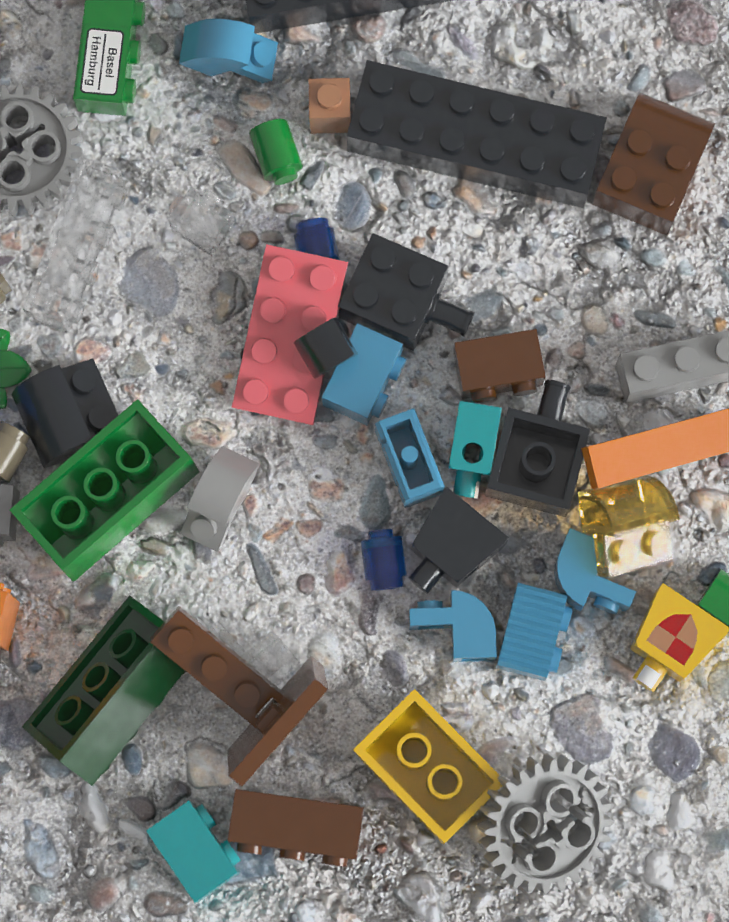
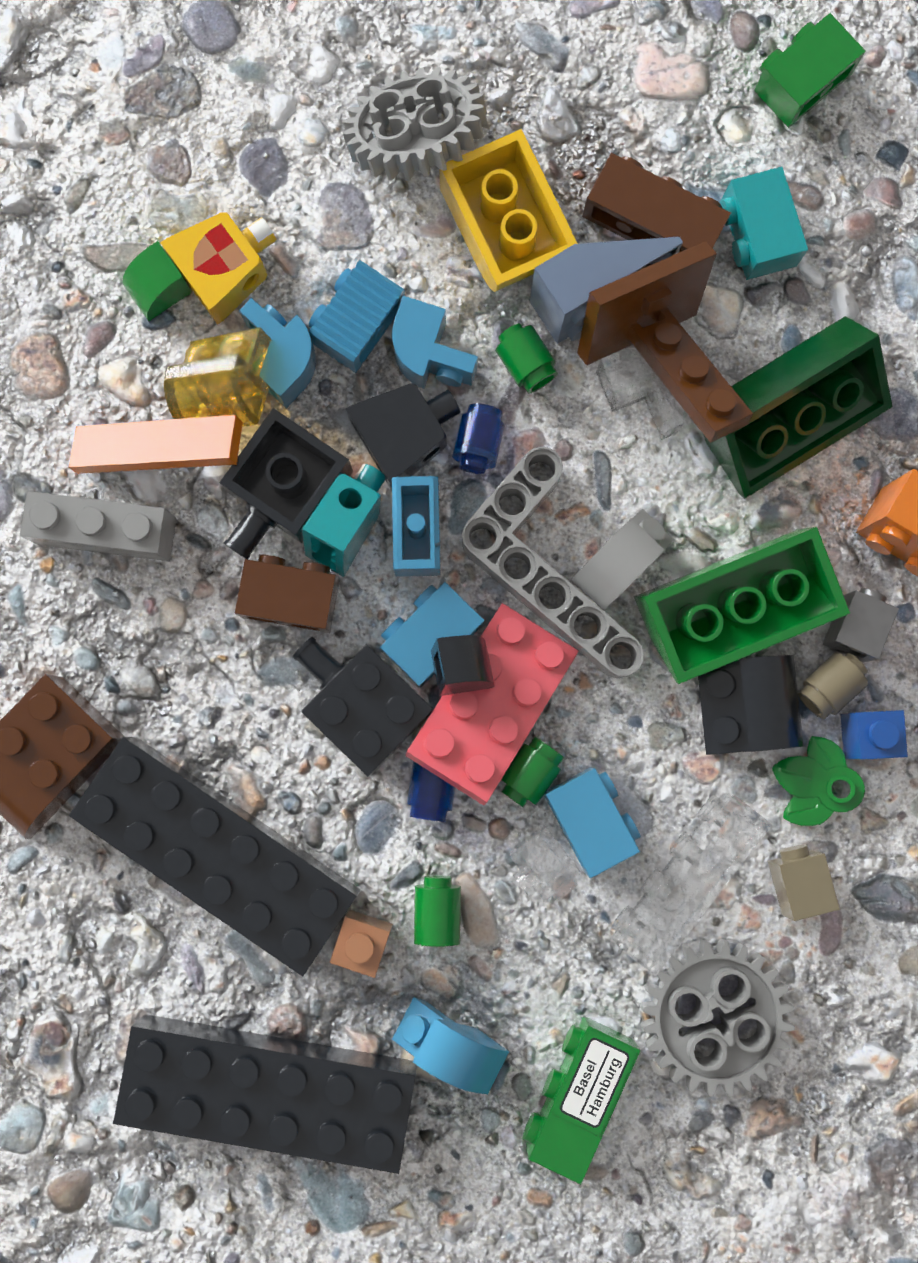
camera: 165 degrees left, 5 degrees up
(172, 268) = (592, 821): none -> dark azure brick
(236, 290) = (531, 772): none -> green brick
(286, 459) = (541, 574): none -> light grey beam
(333, 726) = (564, 281): none -> sand blue slope
(367, 648) = (526, 357): none -> green brick

